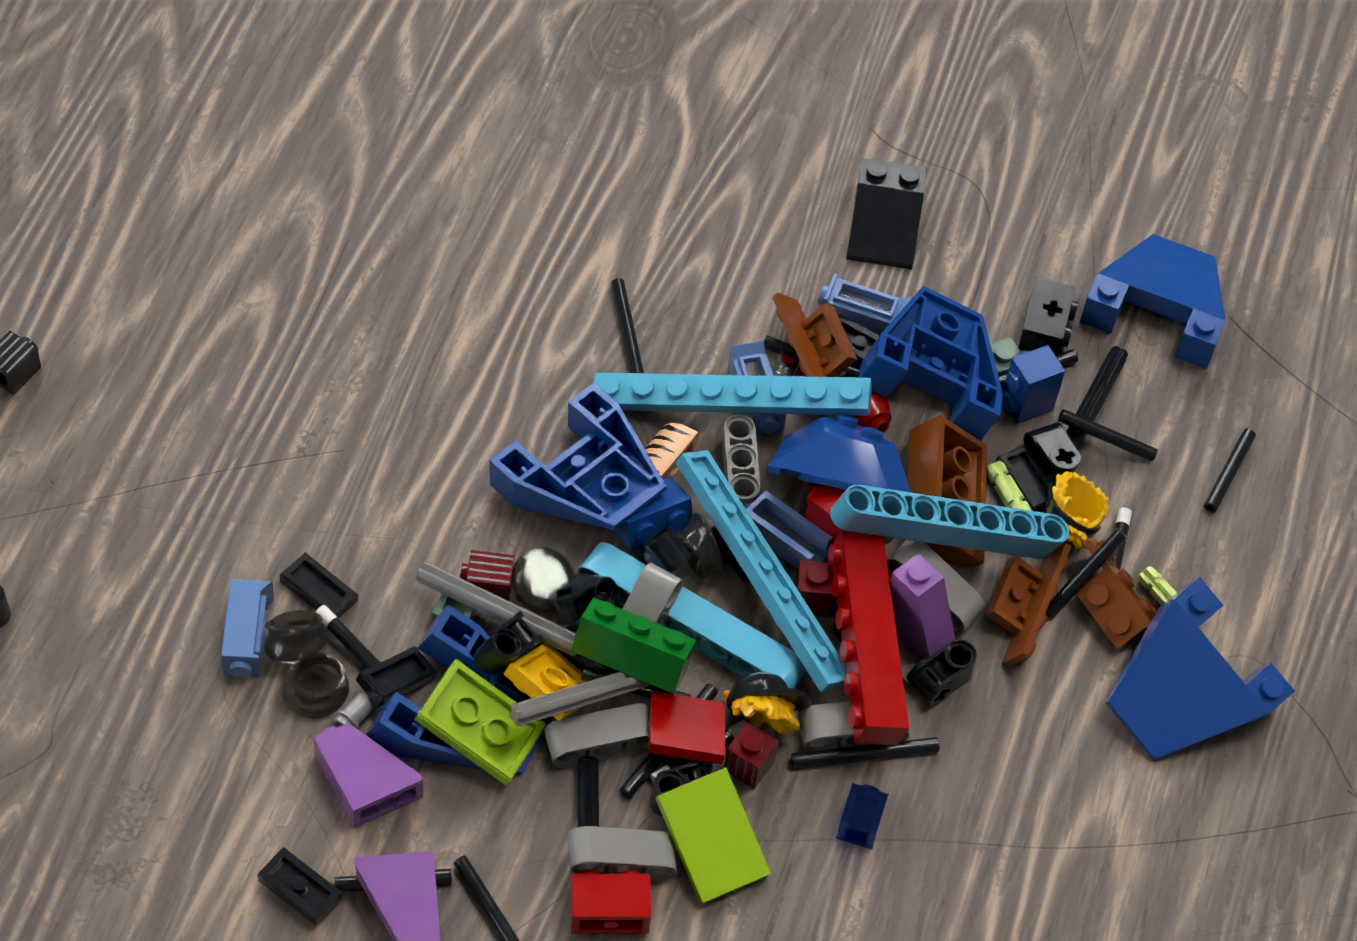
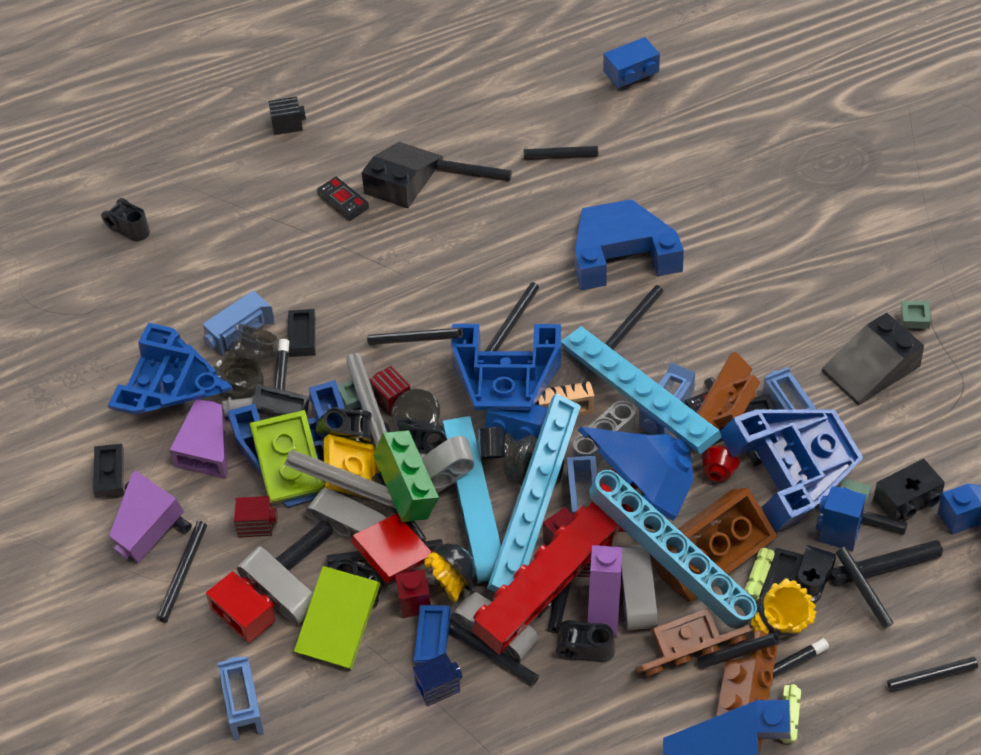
camera: 55 degrees right, 5 degrees down
(185, 412) = (342, 198): none -> tile
(219, 340) = (399, 173): none -> black slope
(249, 739) = (166, 374): none -> blue wedge
(288, 283) = (474, 169): none -> black piece
(326, 54) = (631, 62): none -> blue brick
(356, 203) = (560, 152): none -> black piece
(458, 502) = (415, 336): none -> black piece
(510, 808) = (254, 516): none -> dark red brick
(511, 406) = (513, 317): none -> black bar
(516, 246) = (619, 231): none -> blue wedge
(809, 780) = (432, 632): none -> blue tile
(872, 142) = (915, 314): none -> sand green plate

